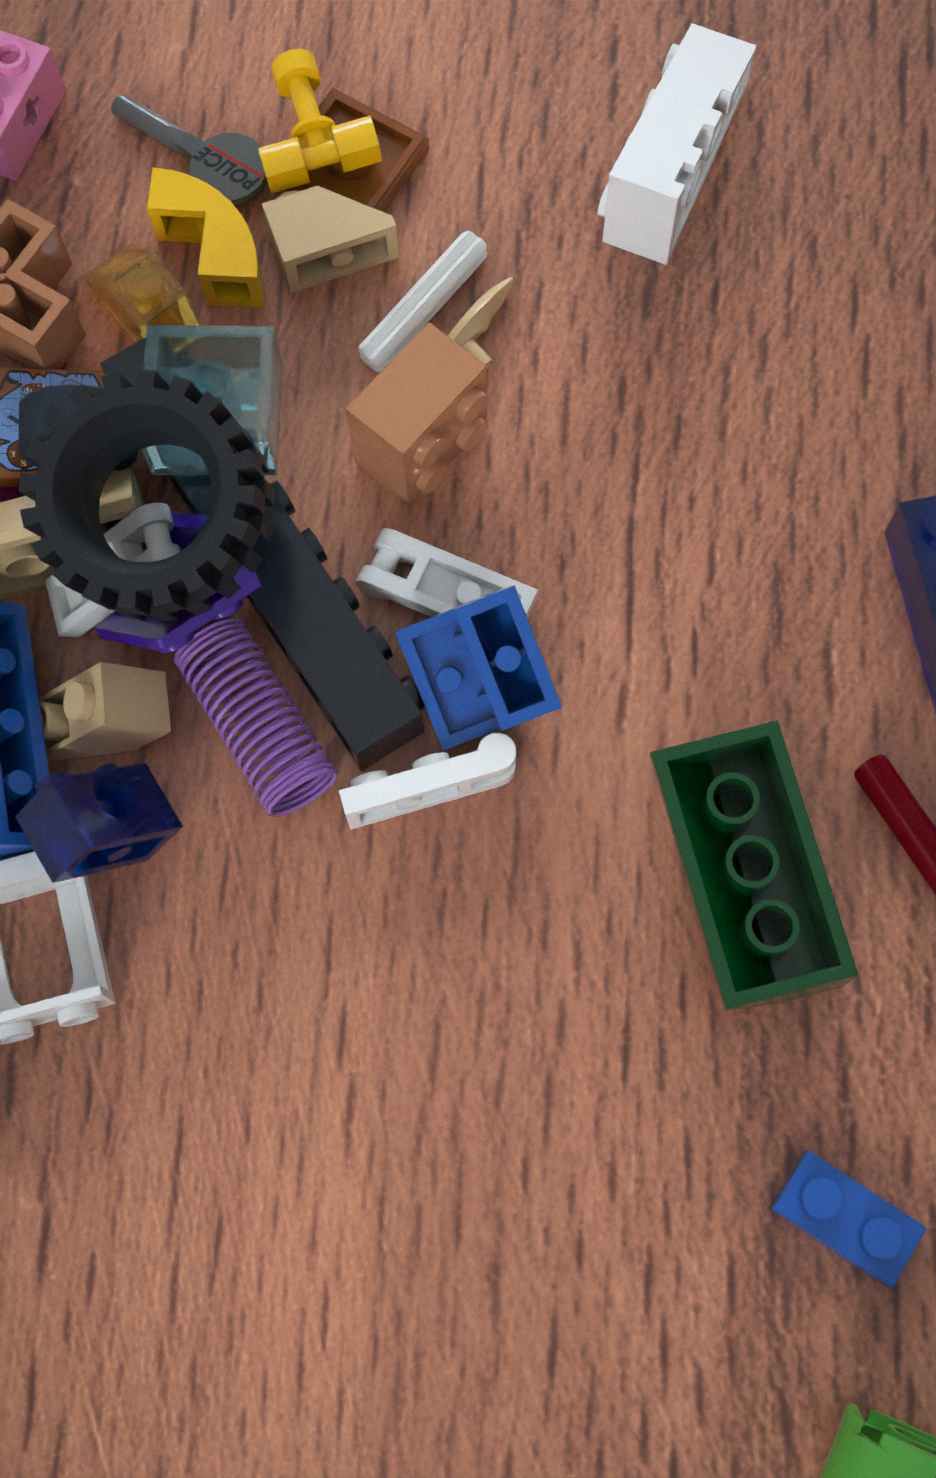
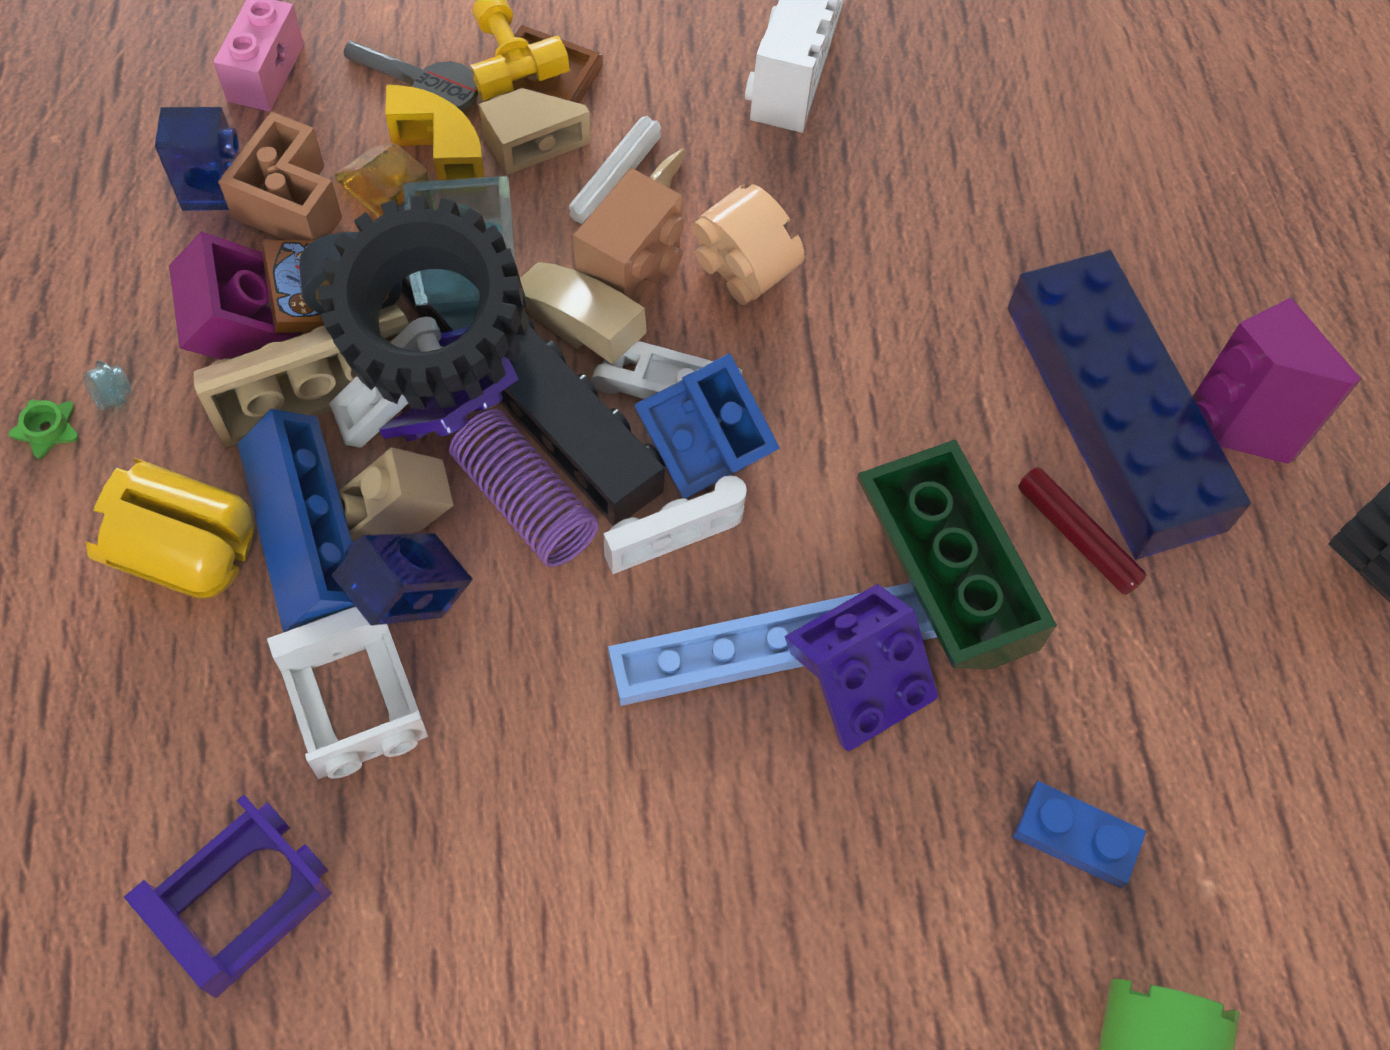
camera: 15 degrees left, 10 degrees down
(352, 490) = (583, 310): none -> tan slope
(514, 942) = (723, 650): none -> light blue plate
(566, 422) = (747, 242): none -> light nougat brick
(625, 985) = (866, 663): none -> dark purple bracket

